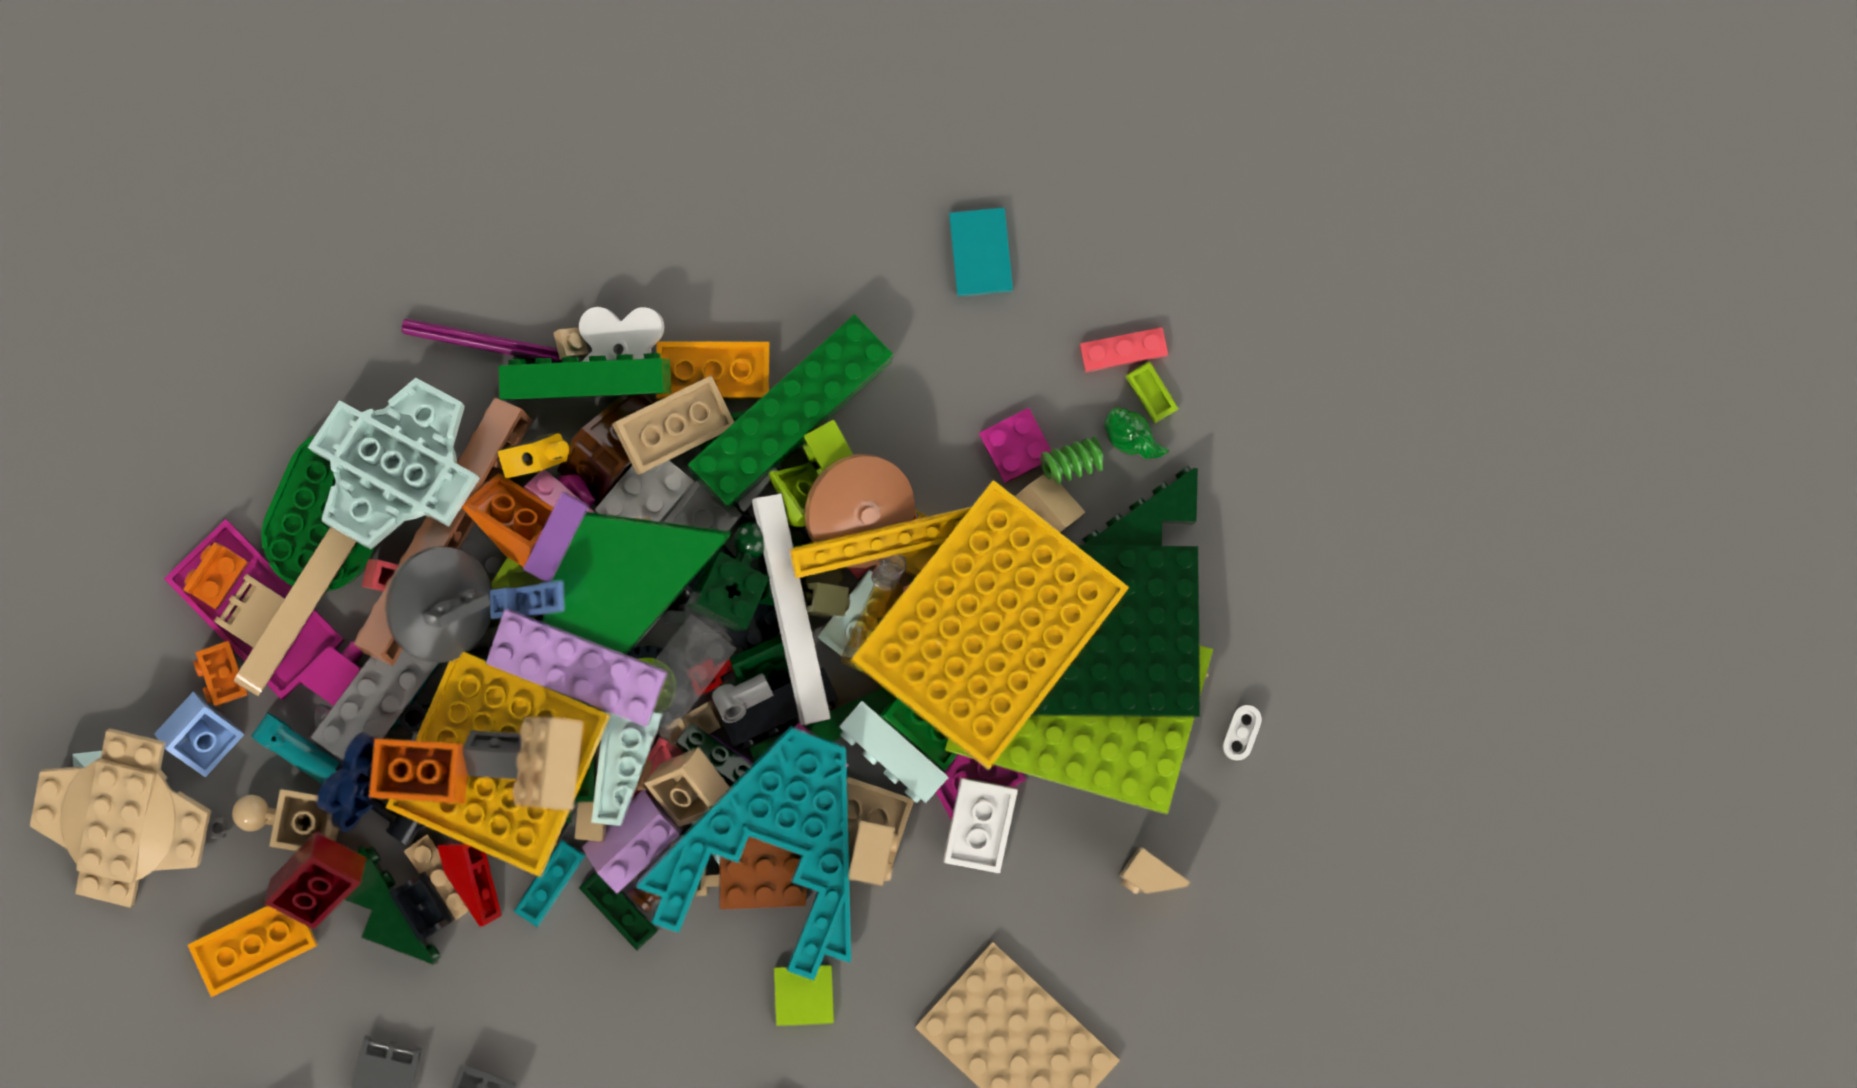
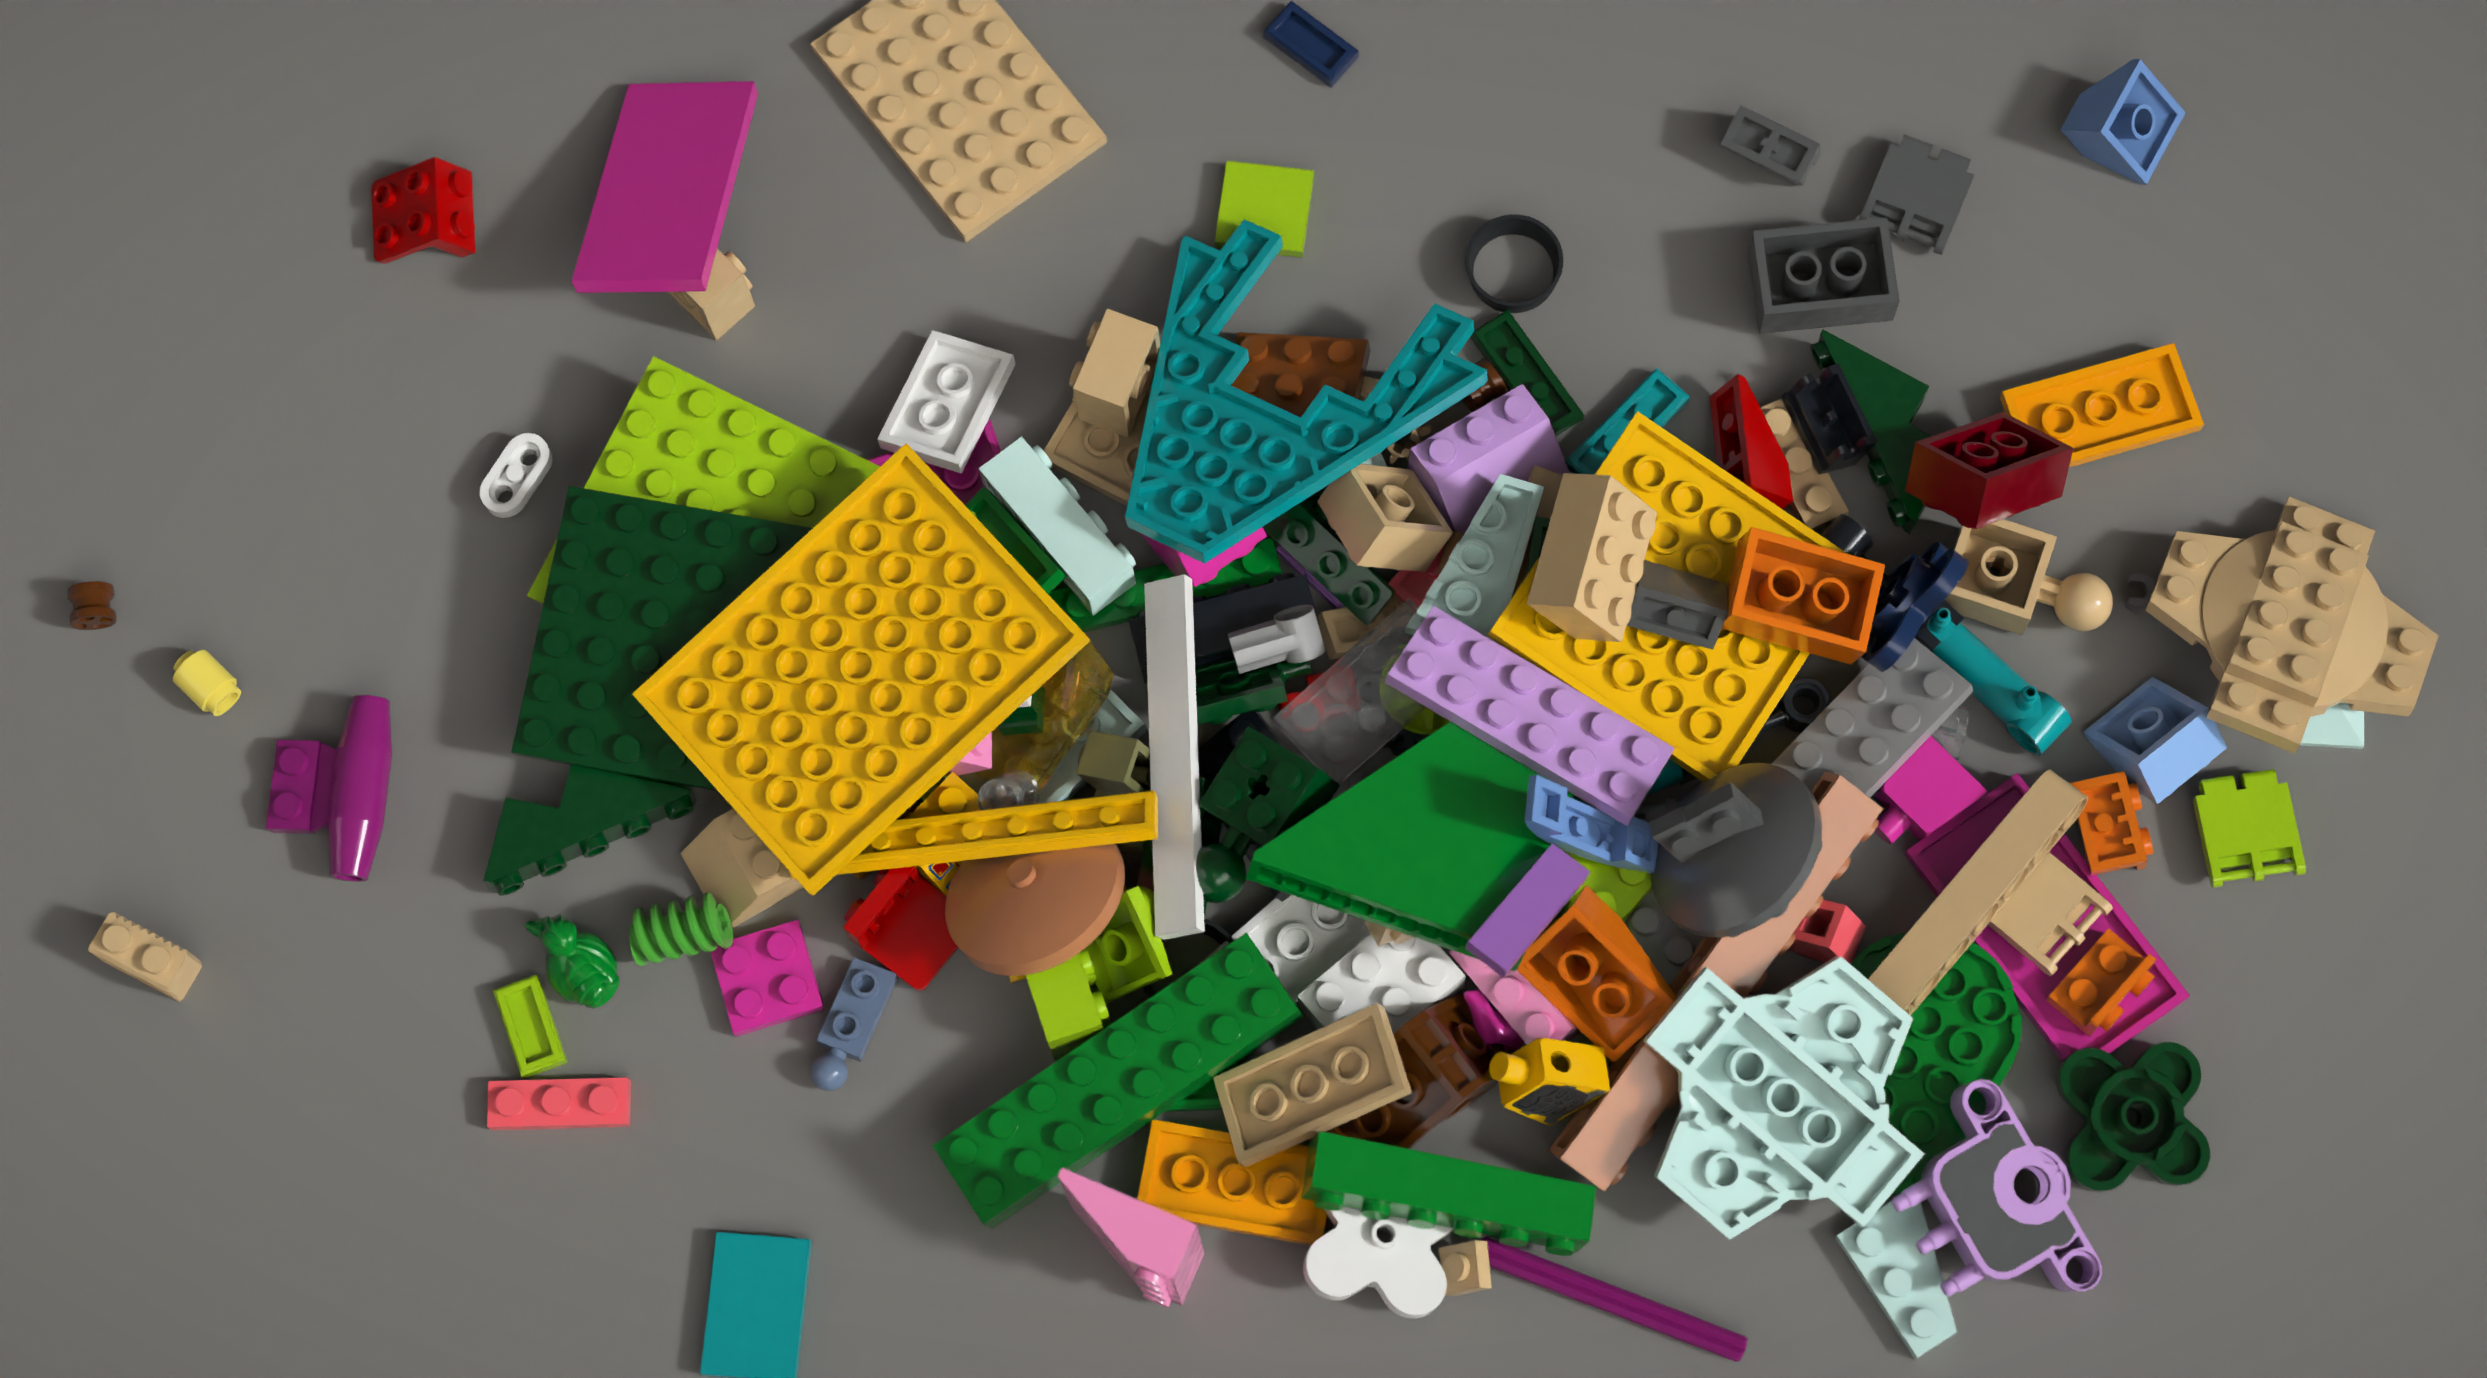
camera: 160 degrees left, 10 degrees down
(138, 689) = (2247, 827): none -> lime plate
(173, 490) = (2157, 1091): none -> dark green plant
(276, 431) = (1983, 1216): none -> lavender piece
(314, 384) = (1900, 1276): none -> light aqua wing
(437, 1003) = (1823, 275): none -> dark grey brick
(610, 990) = (1517, 225): none -> black tyre
(755, 312) = (1148, 1243): none -> bright pink slope
(938, 485) = (903, 926): none -> red bracket
(959, 426) = (851, 1021): none -> sand blue plate
(1187, 933) = (665, 187): none -> dark pink tile
(1302, 514) = (337, 788): none -> magenta plate
(1344, 898) = (423, 209): none -> red bracket
(1391, 390) = (145, 956): none -> tan brick
(1401, 566) = (206, 682): none -> light yellow brick
(1484, 602) = (91, 605): none -> reddish brown wheel

